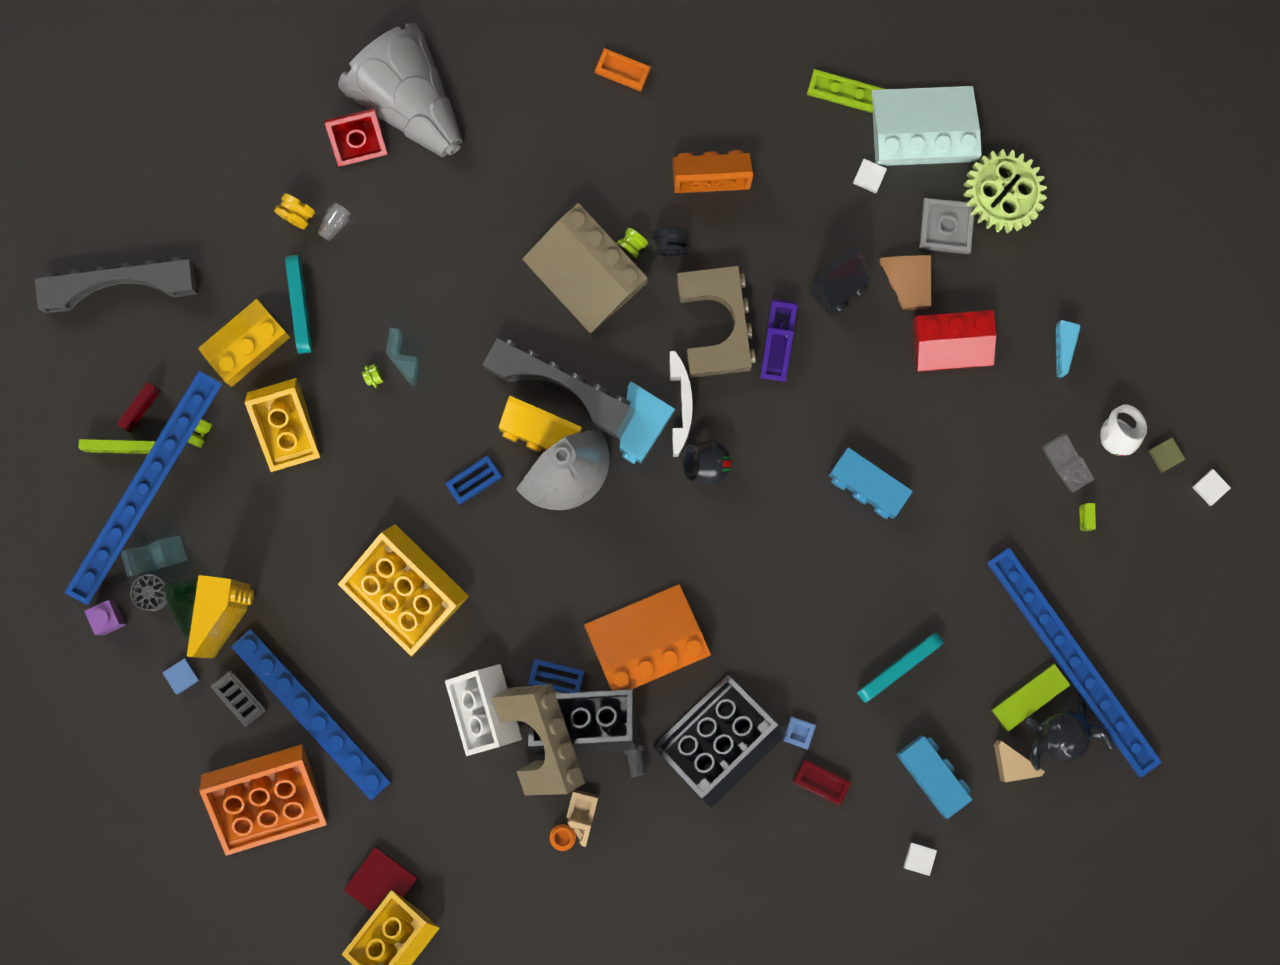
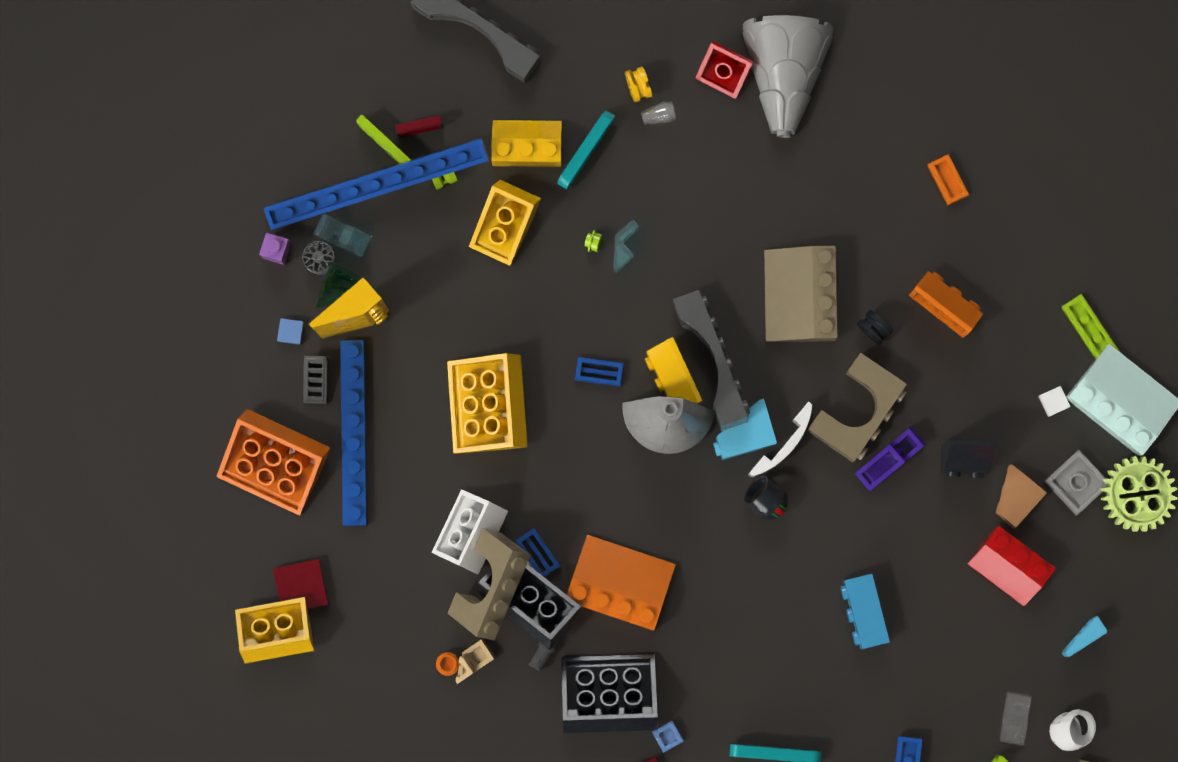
camera: 50 degrees right, 0 degrees up
(632, 243) = (848, 305): lime wheel -> none

